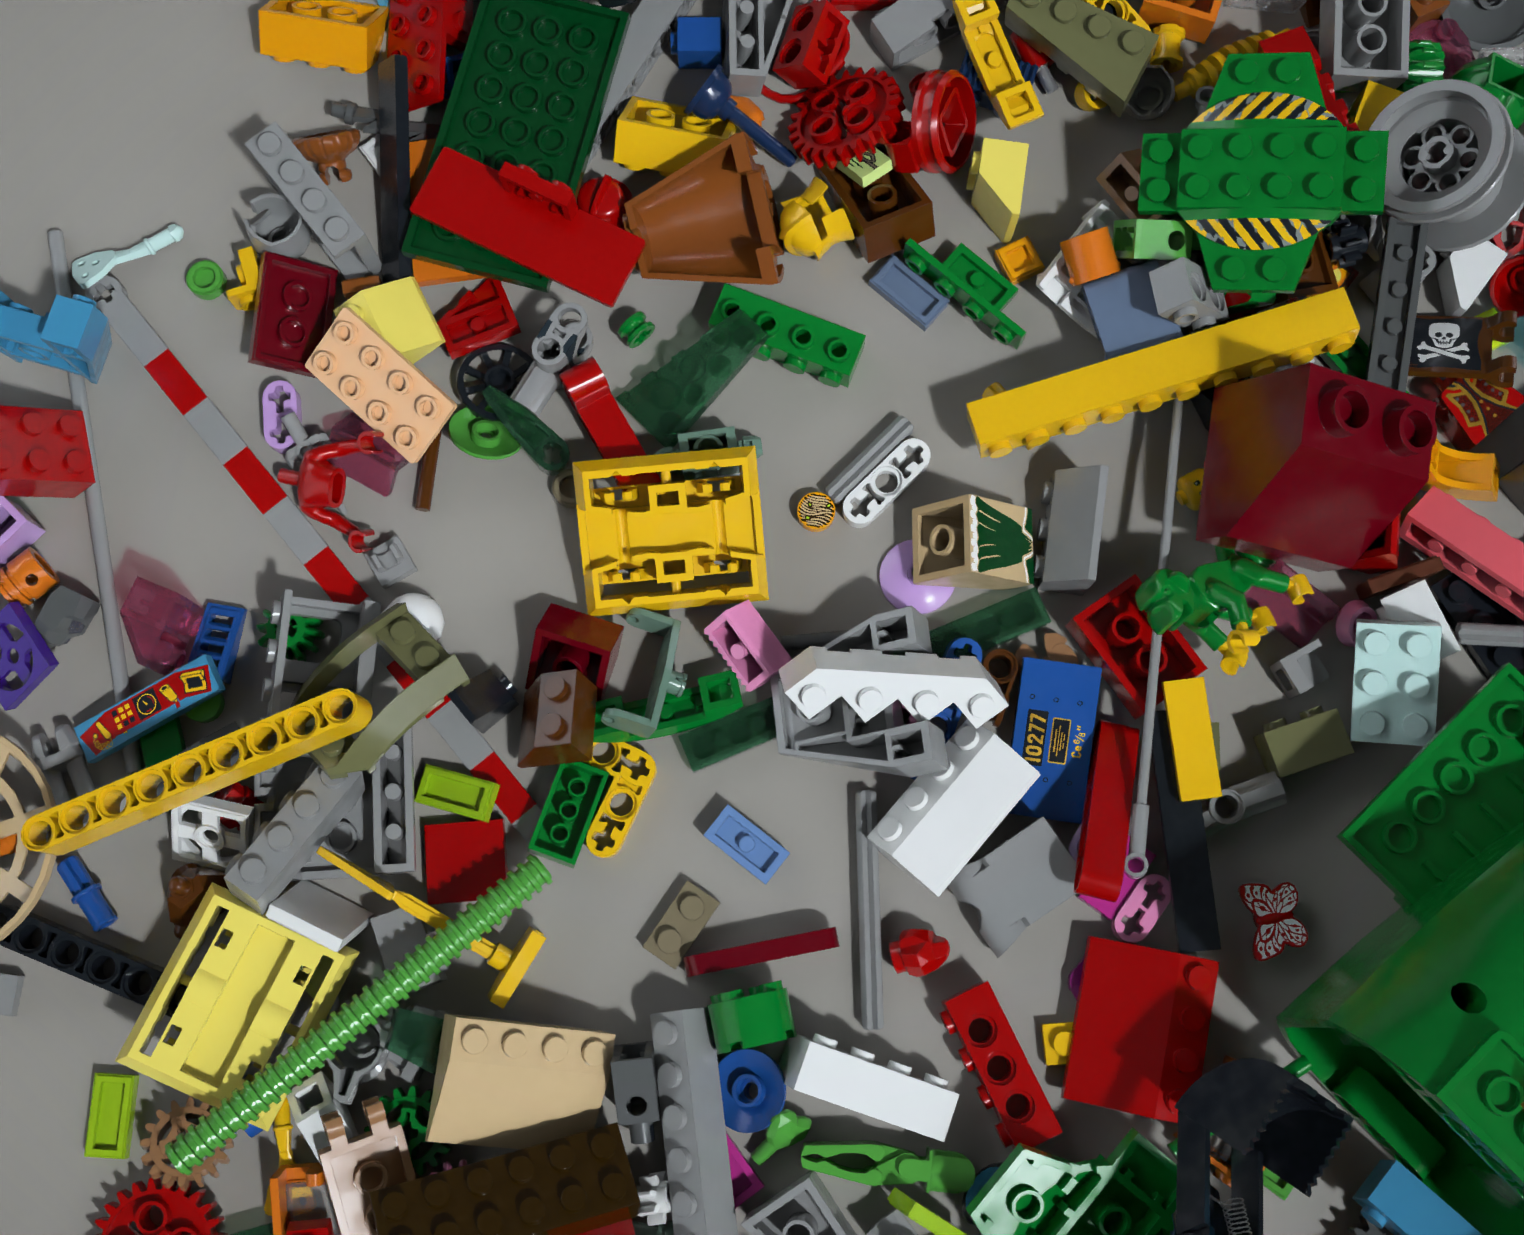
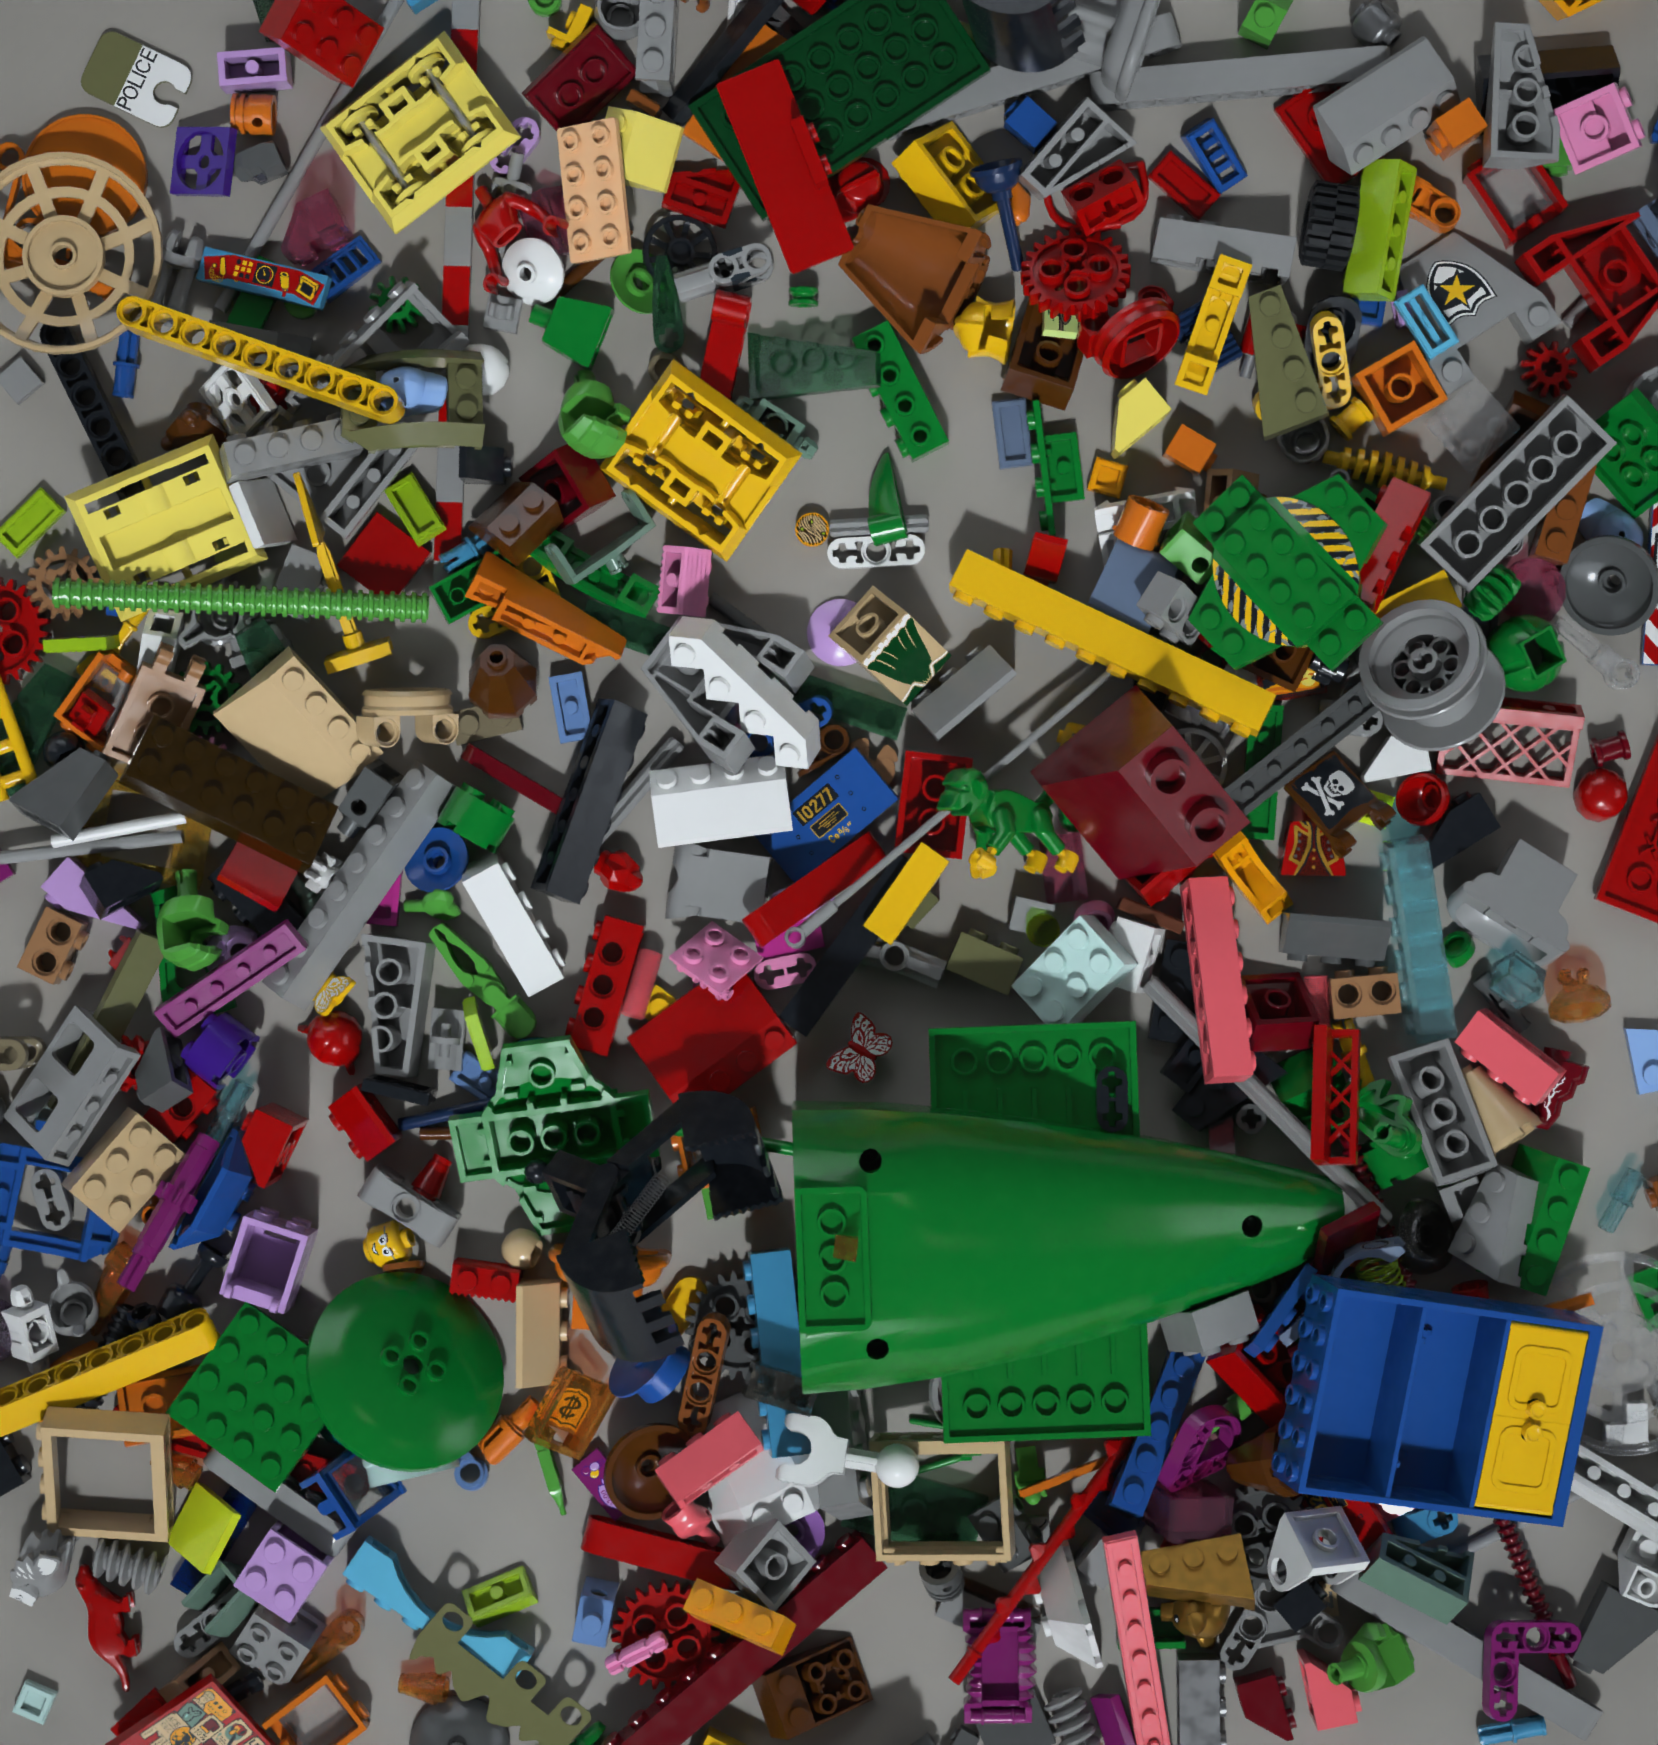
camera: 40 degrees right, 10 degrees up
(195, 472) = (425, 134): none -> light yellow piece
(249, 1185) = (81, 643): none -> lime tile
(371, 677) = (419, 389): none -> light blue cap
(397, 490) = (545, 269): none -> white dish
(463, 520) = (574, 328): none -> green torso
(533, 792) = (463, 553): none -> dark azure axle
(546, 575) = (591, 418): none -> bright green piece
(583, 991) = (386, 705): none -> tan piece
(648, 783) = (541, 613): none -> orange wedge
(666, 875) = (502, 682): none -> reddish brown cone
(839, 913) = (589, 801): none -> black brick
(862, 435) = (886, 512): none -> green piece
(1032, 355) = (1045, 558): none -> red slope
(1043, 1056) = (642, 986): none -> coral piece
(1066, 179) = (1191, 451): none -> orange brick
(1077, 953) = (715, 960): none -> bright pink hinge
(1324, 671) = (1042, 929): none -> clear neon green tile

